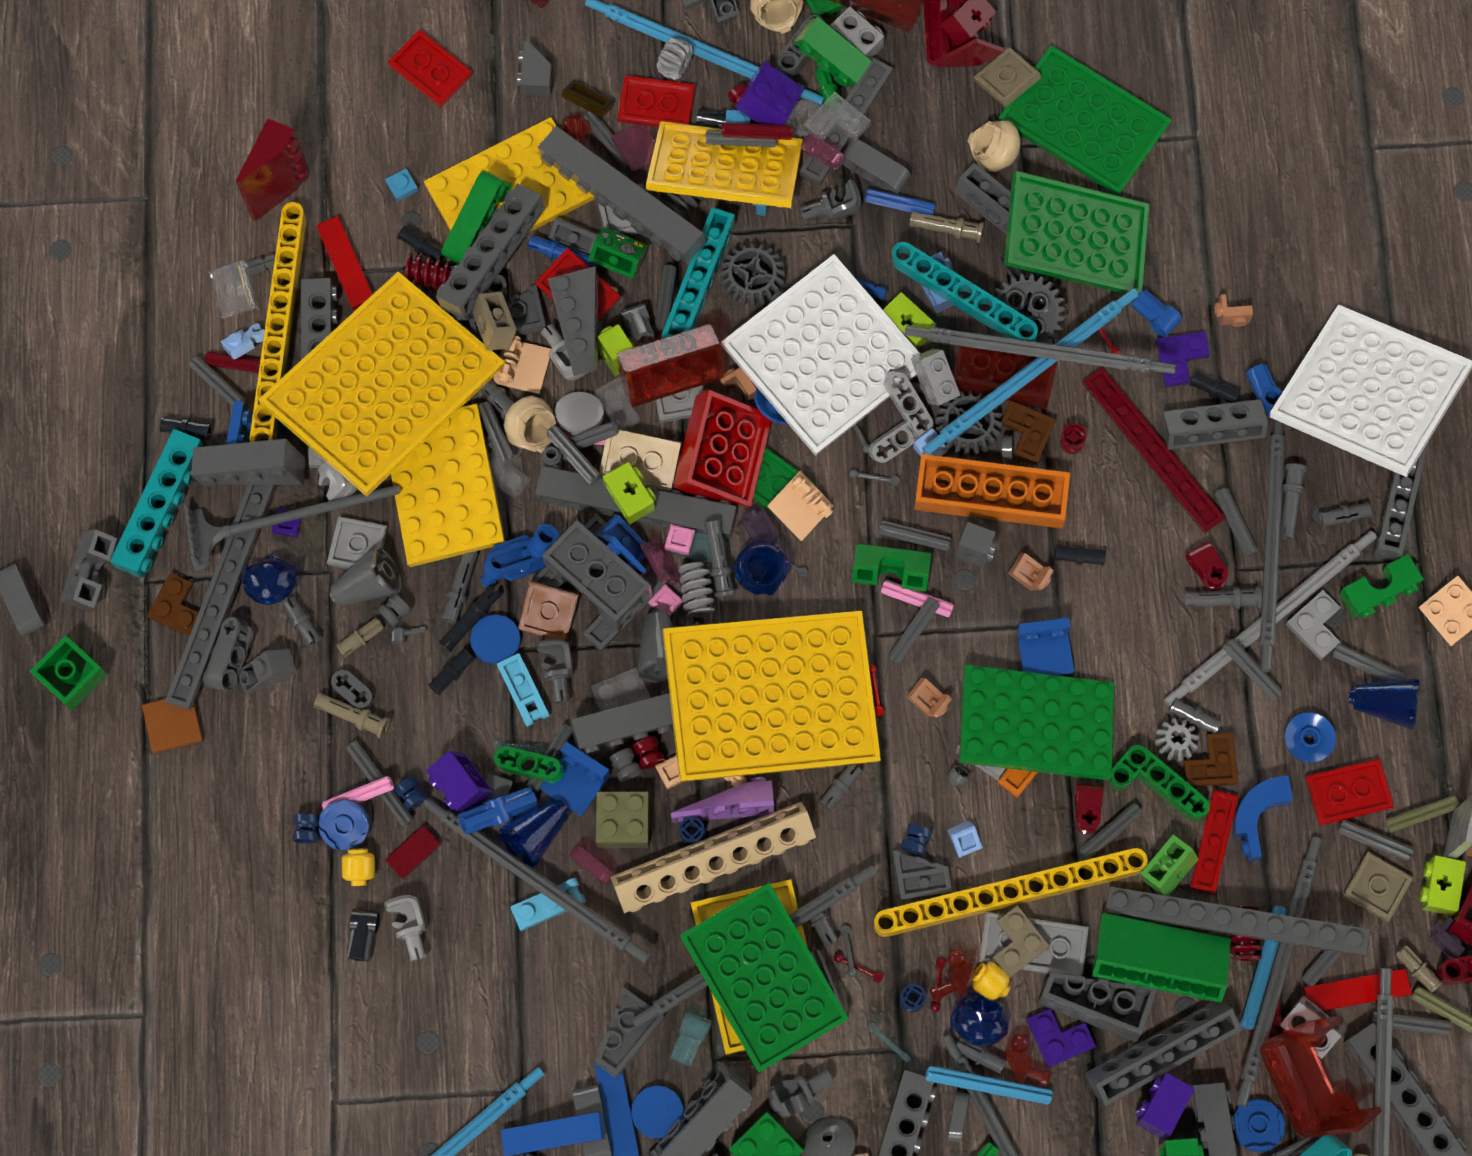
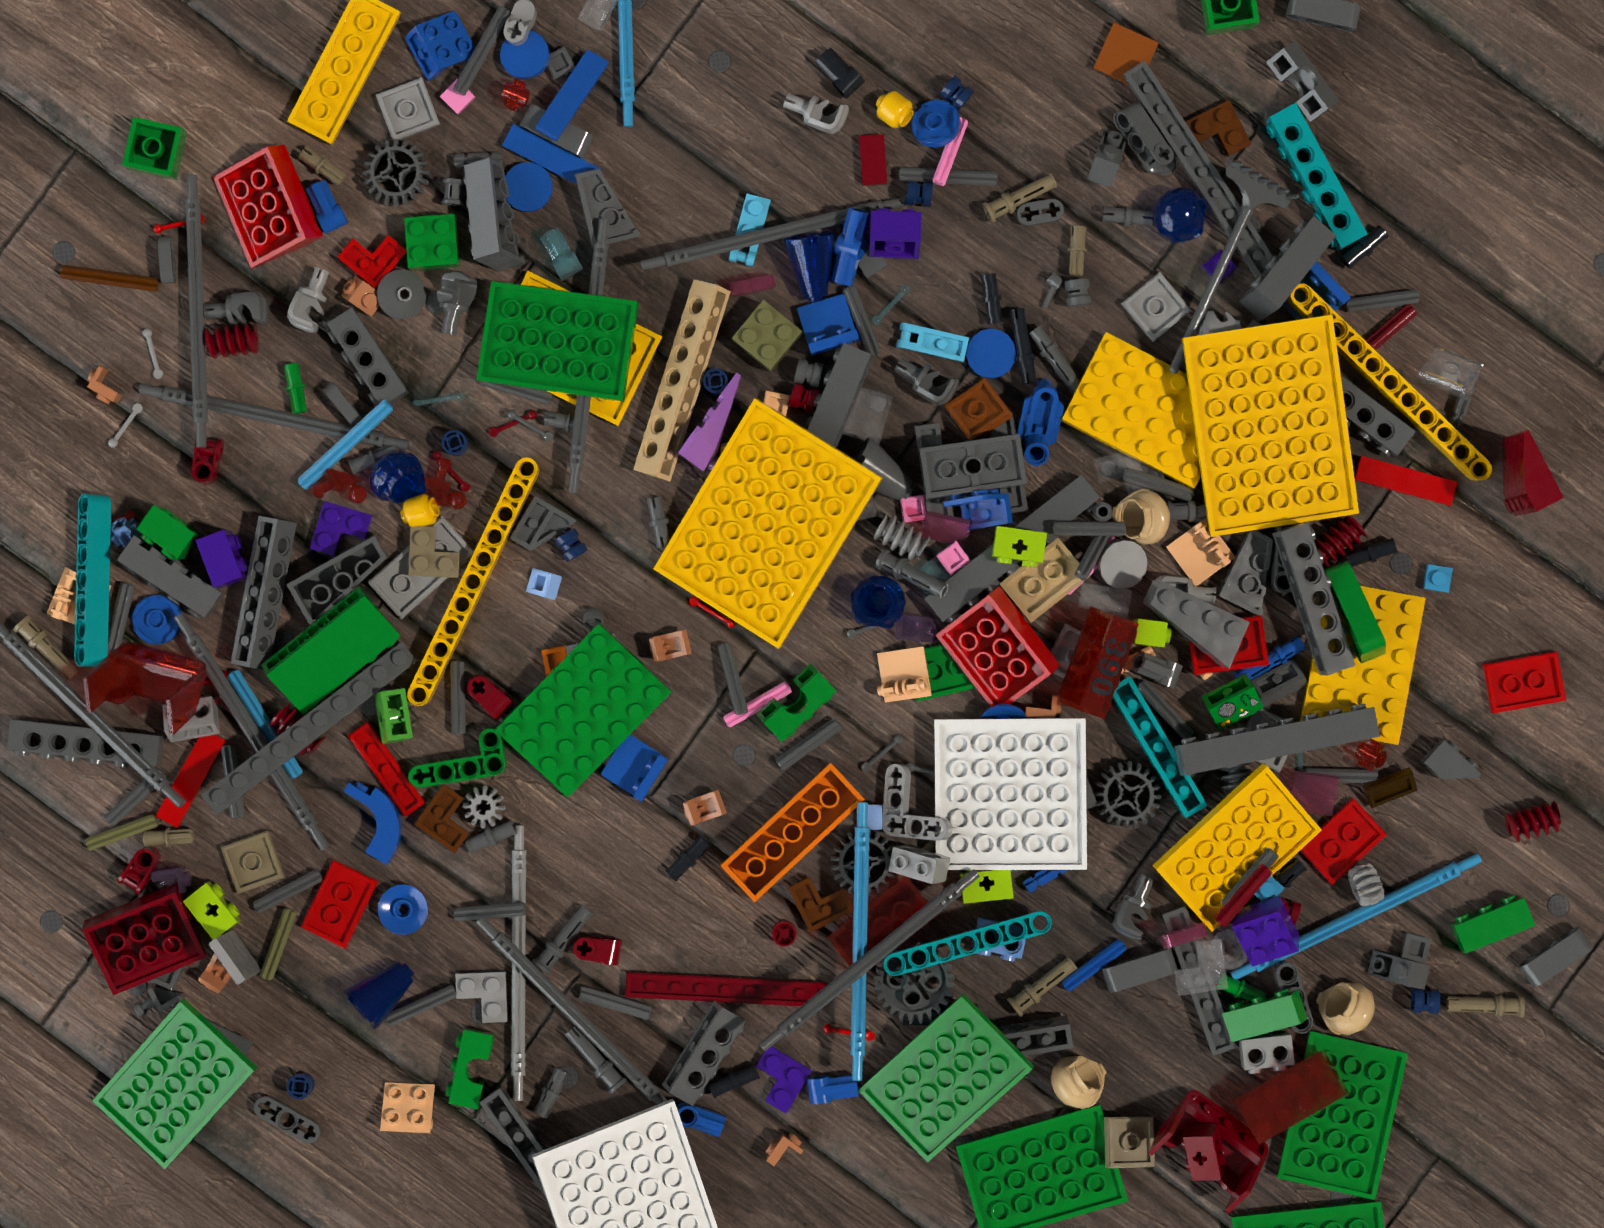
camera: 130 degrees right, 15 degrees up
(241, 343) = (1402, 344): light blue plate -> none
(367, 580) = (1116, 290): dark grey cone -> none
(494, 321) = (1250, 554): dark tan brick -> none
(536, 772) = (849, 302): green beam -> none
(976, 545) = (757, 782): dark grey brick -> none
(1007, 447) = (819, 875): dark grey tile -> none

